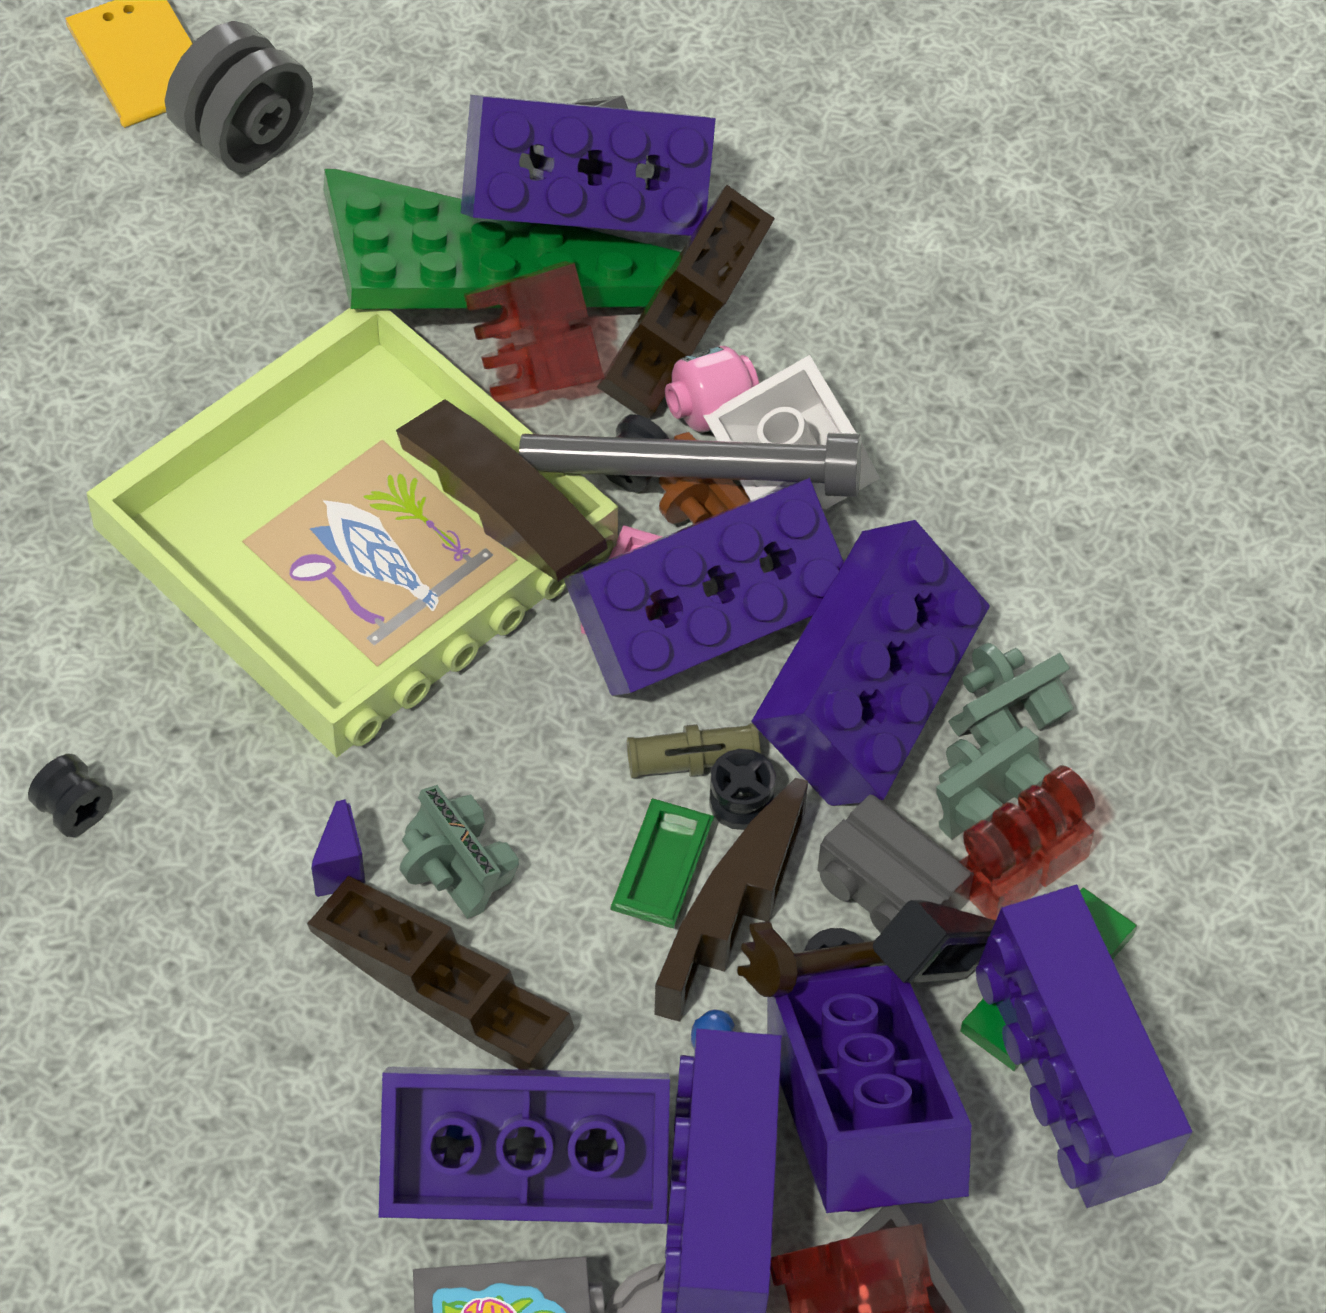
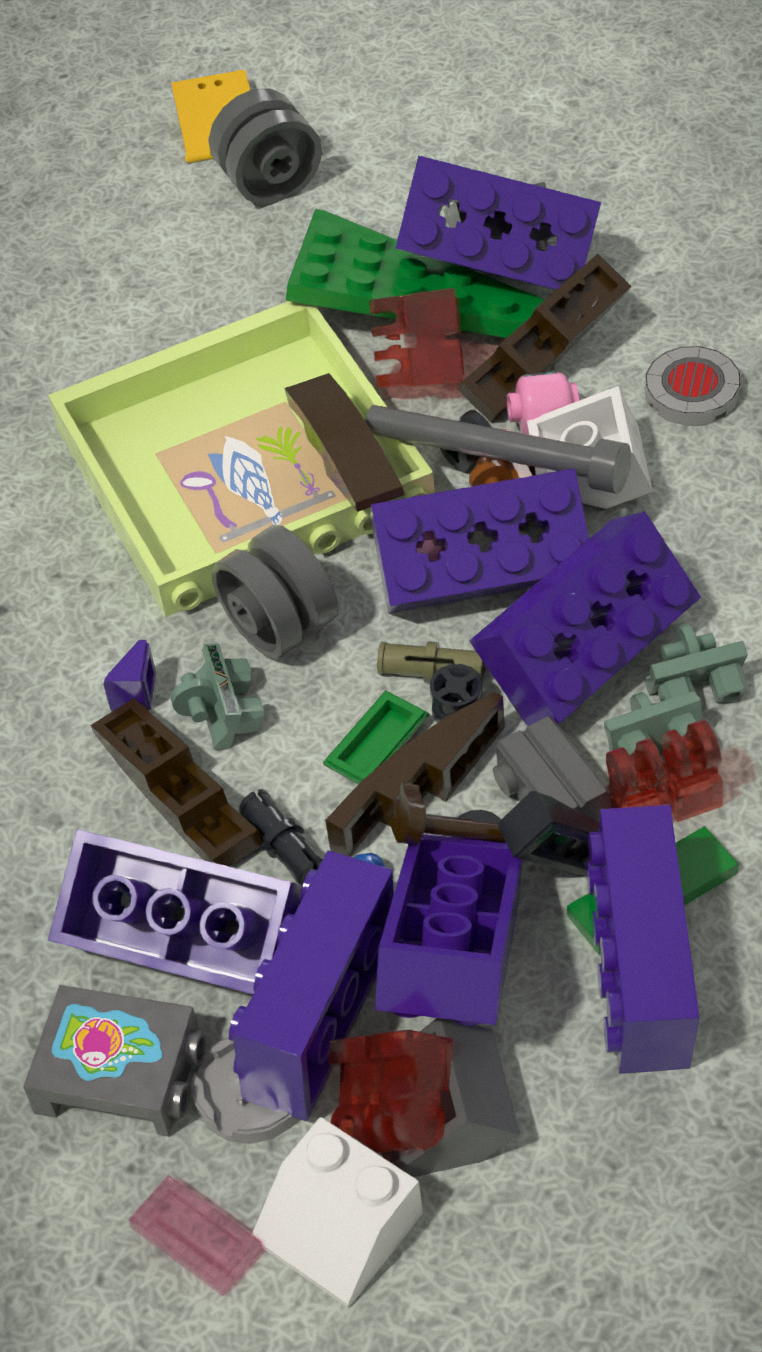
camera: 25 degrees right, 5 degrees down
(484, 703) = (275, 591): none -> dark grey wheel
(599, 1014) = (280, 835): none -> black pin
(873, 328) = (692, 385): none -> tile

